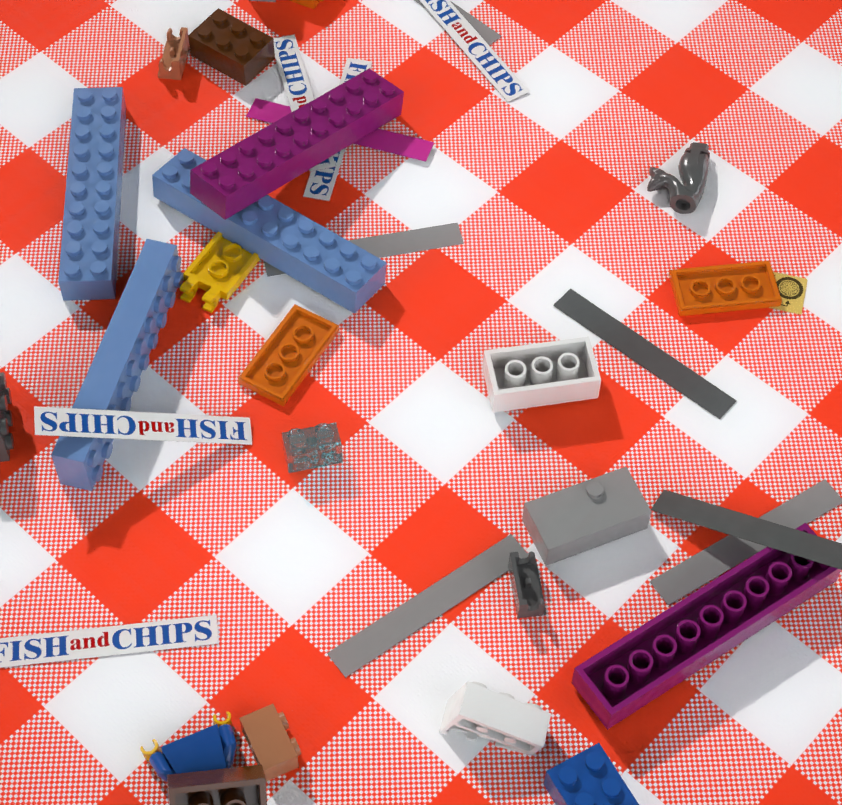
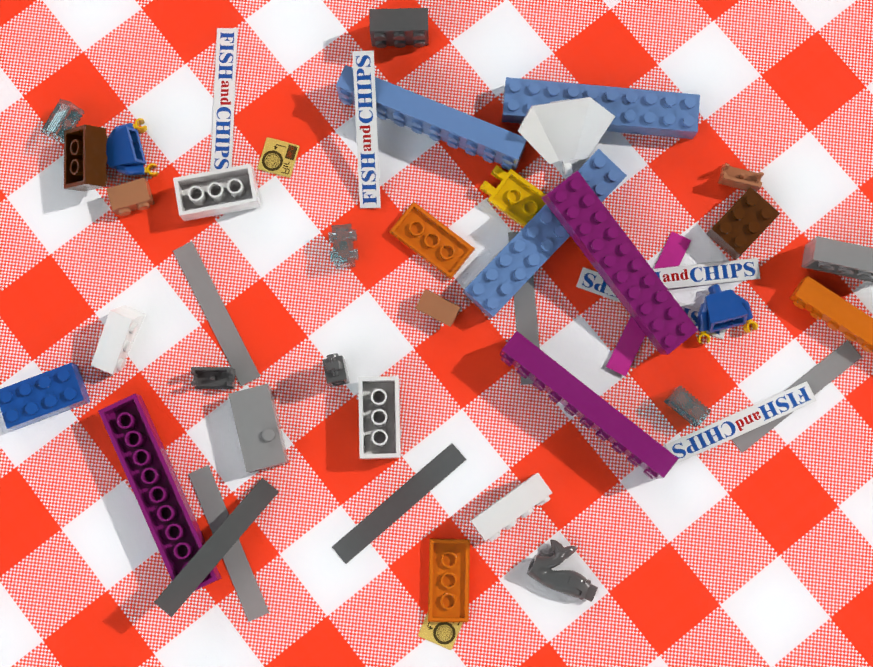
camera: 100 degrees right, 25 degrees up
(129, 202) = (565, 129): none -> white panel
(186, 556) = (278, 157): none -> clear yellow sticker
(252, 616) = (216, 192): none -> white brick
(341, 54) = (723, 311): none -> blue torso
(380, 332) = (438, 307): none -> nougat hinge
(459, 78) = (687, 406): none -> clear light blue brick
(478, 166) = (588, 406): none -> magenta brick
(489, 426) = (335, 370): none -> dark grey hinge
(621, 223) = (512, 506): none -> white brick

